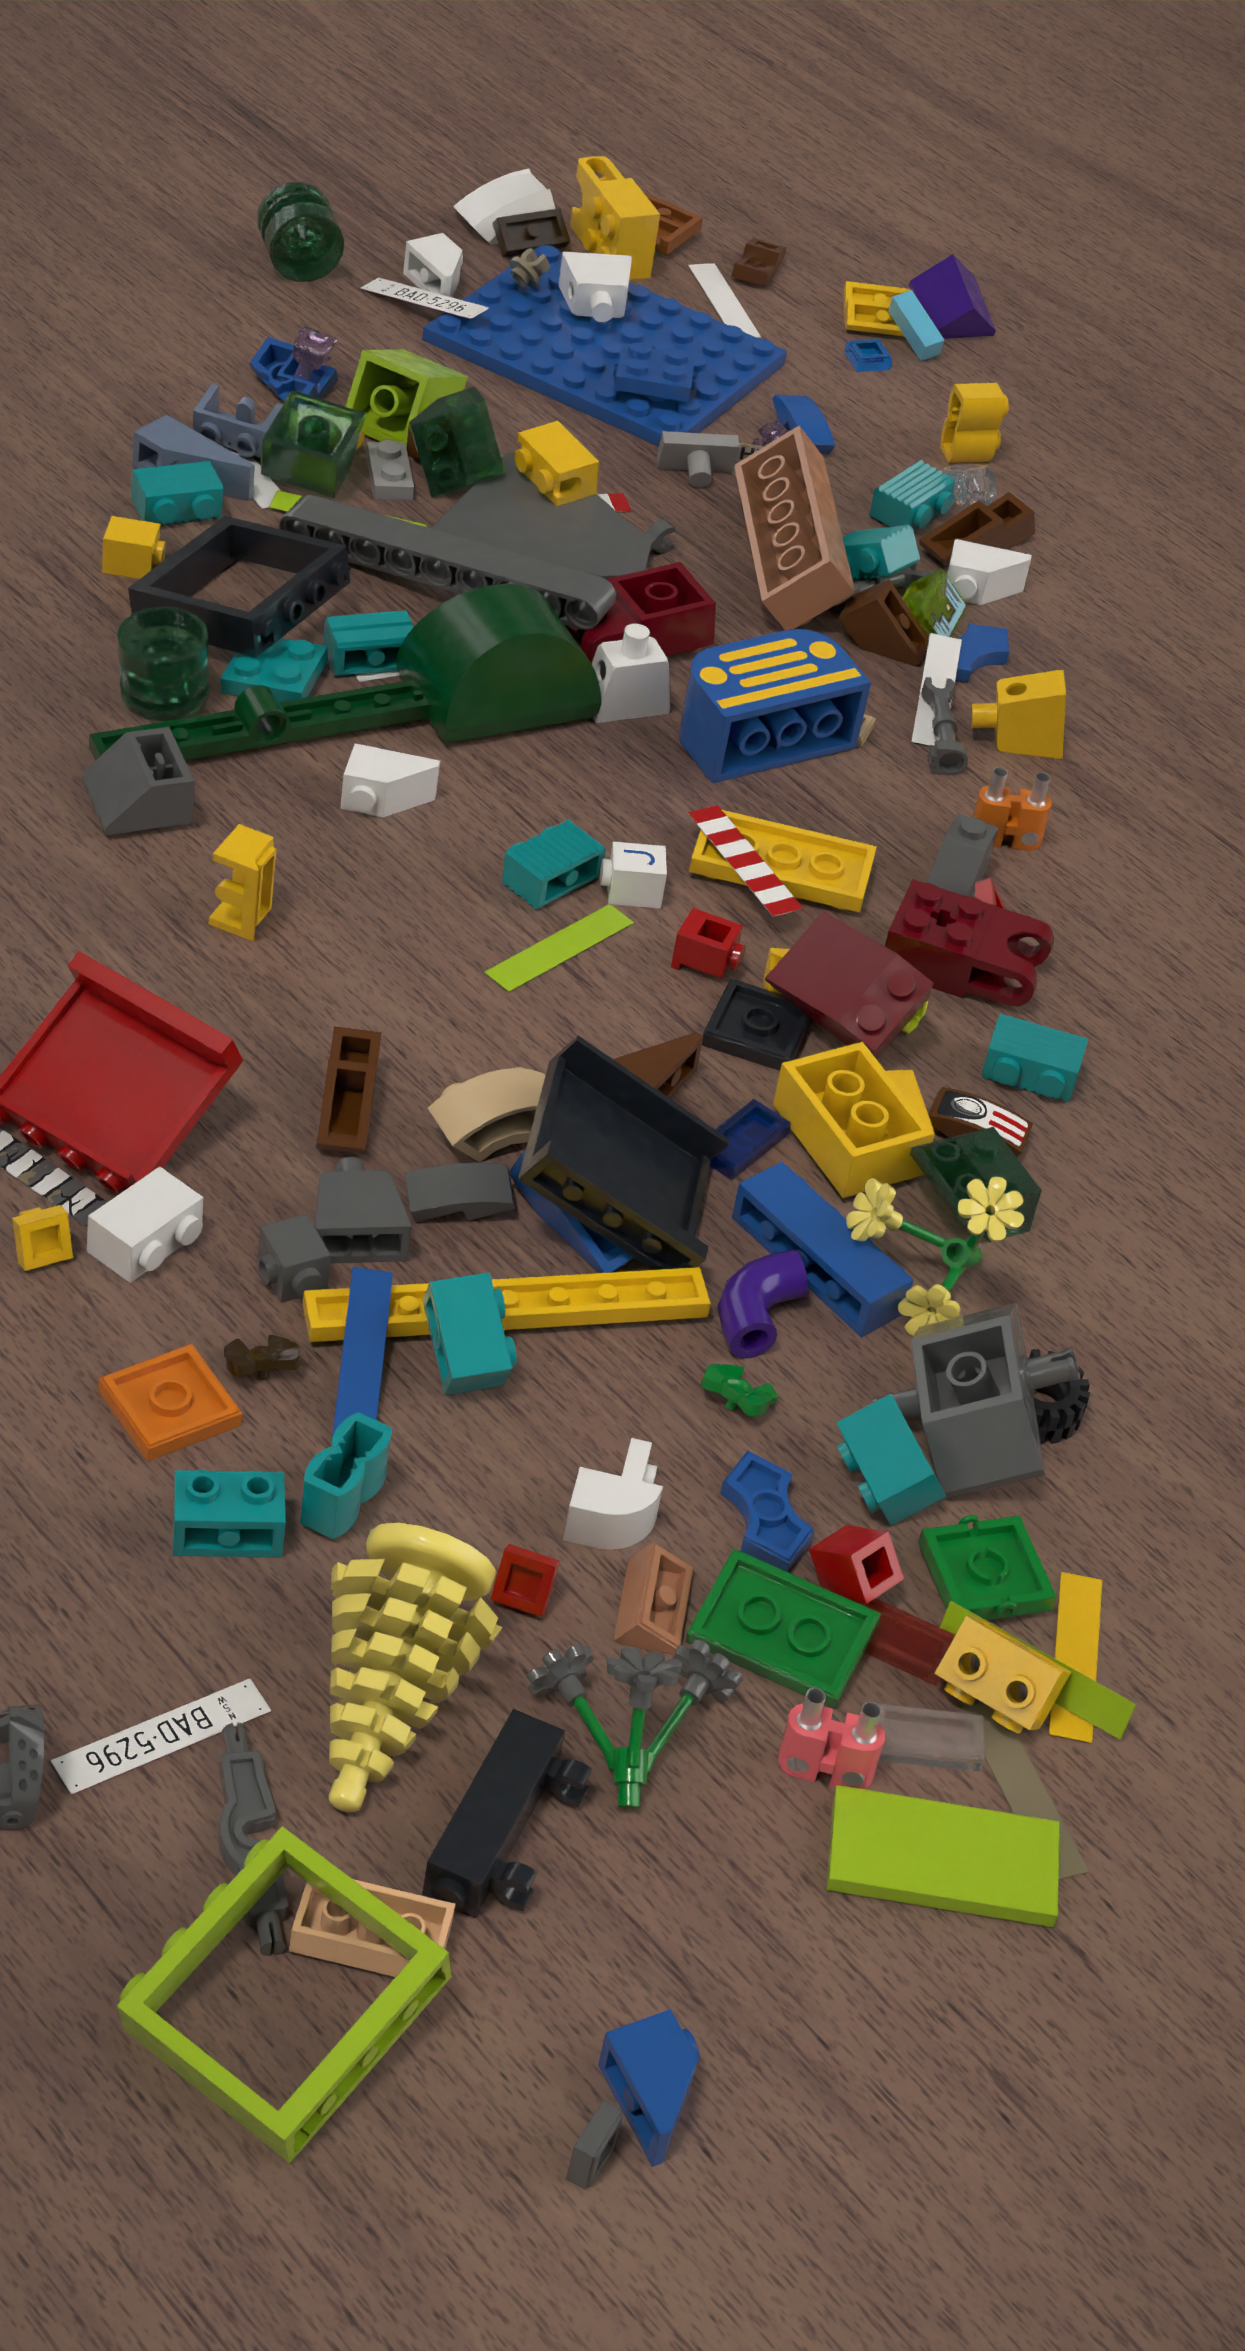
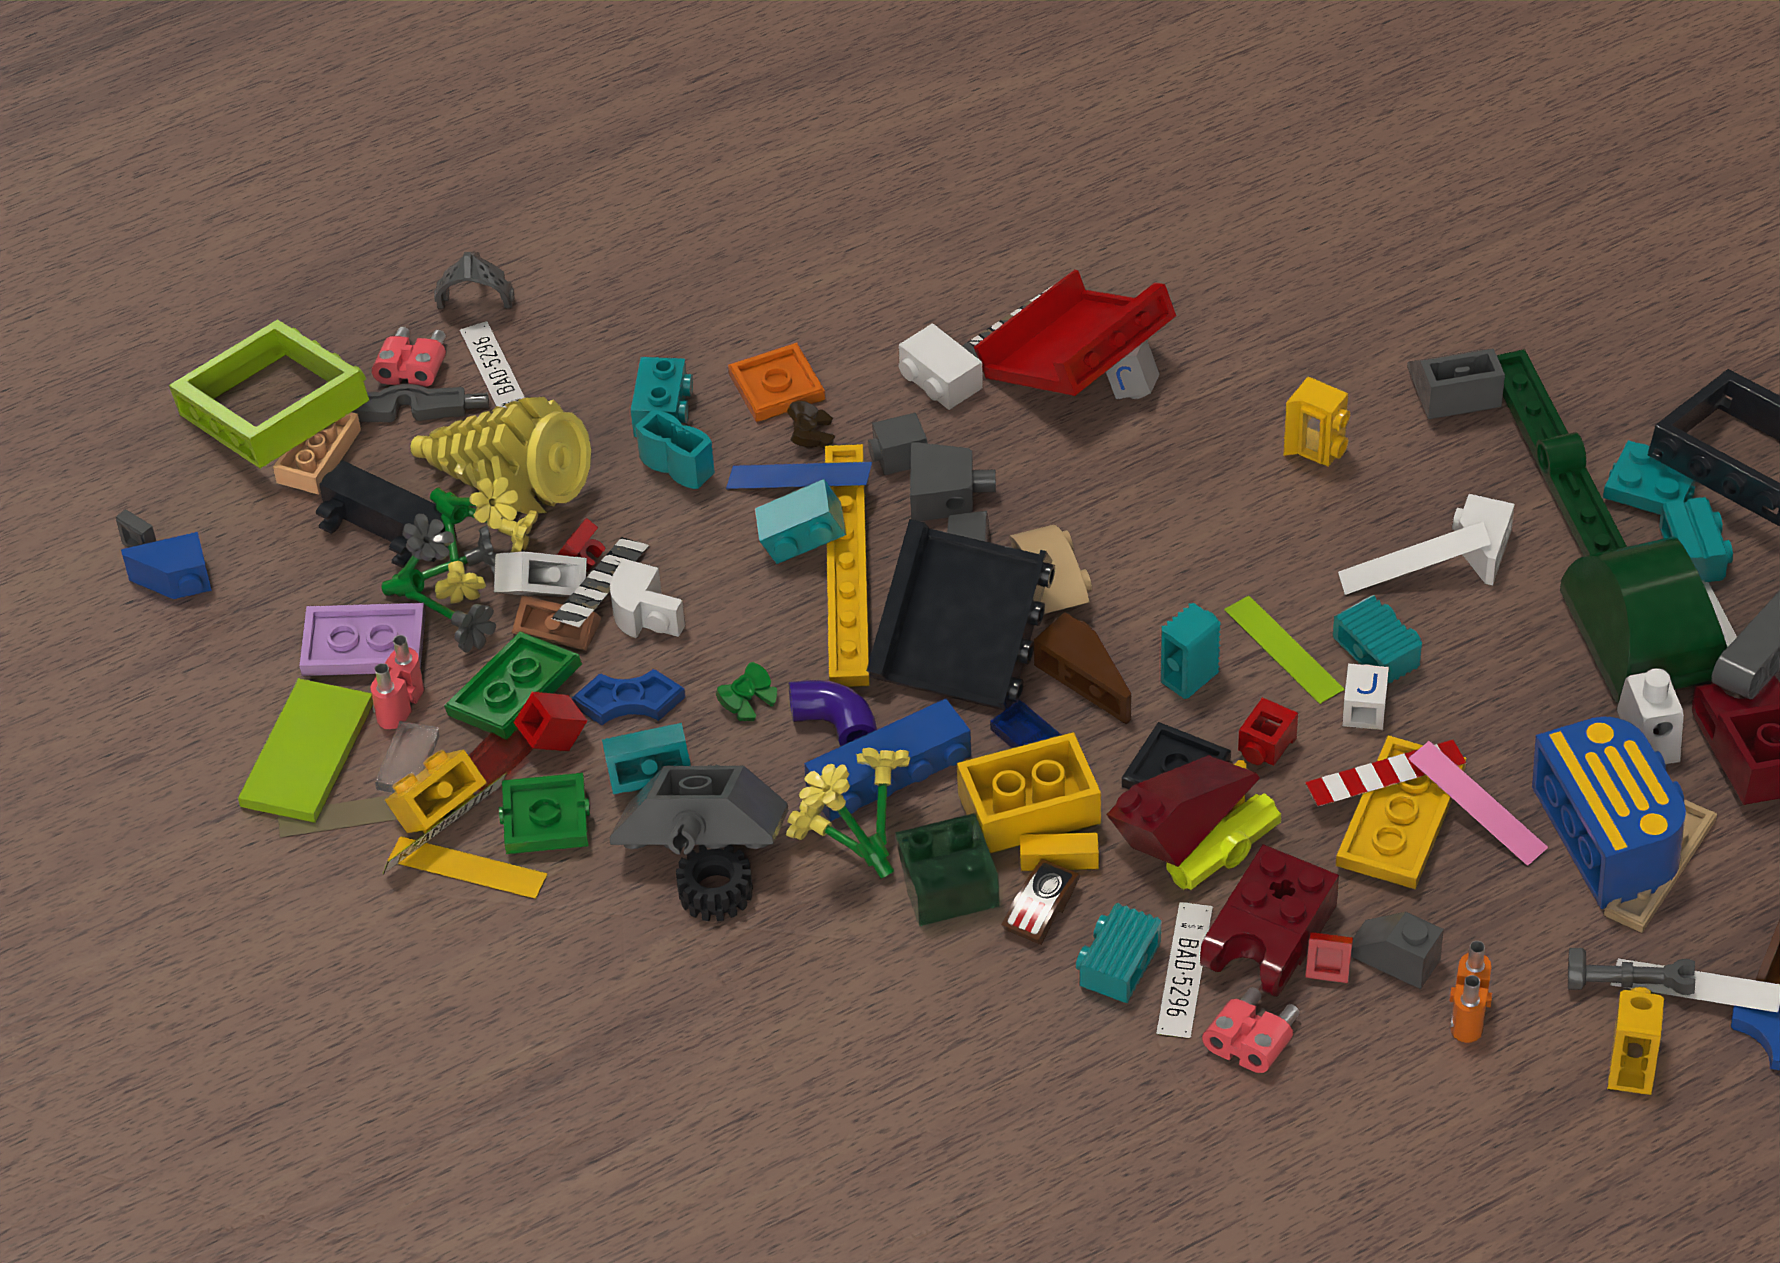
camera: 110 degrees right, 5 degrees up
(42, 1237) = (932, 309): yellow tile -> none
(163, 663) = (1616, 387): clear green wheel -> none
(167, 1834) = (413, 362): none -> coral piece
(349, 1090) = (1085, 488): reddish brown slope -> none
(431, 830) = (1414, 558): none -> white sticker
(533, 1639) = (491, 504): none -> light yellow plant
(591, 1549) = (597, 583): none -> sticker
(603, 1608) = (538, 574): none -> white slope
(620, 986) = (1190, 650): none -> teal brick
(741, 1812) = (357, 636): none -> lavender plate
(761, 805) = (1478, 803): none -> bright pink sticker
(984, 1022) = (1184, 971): none -> white sticker
(1099, 970) = (1250, 1036): none -> coral piece

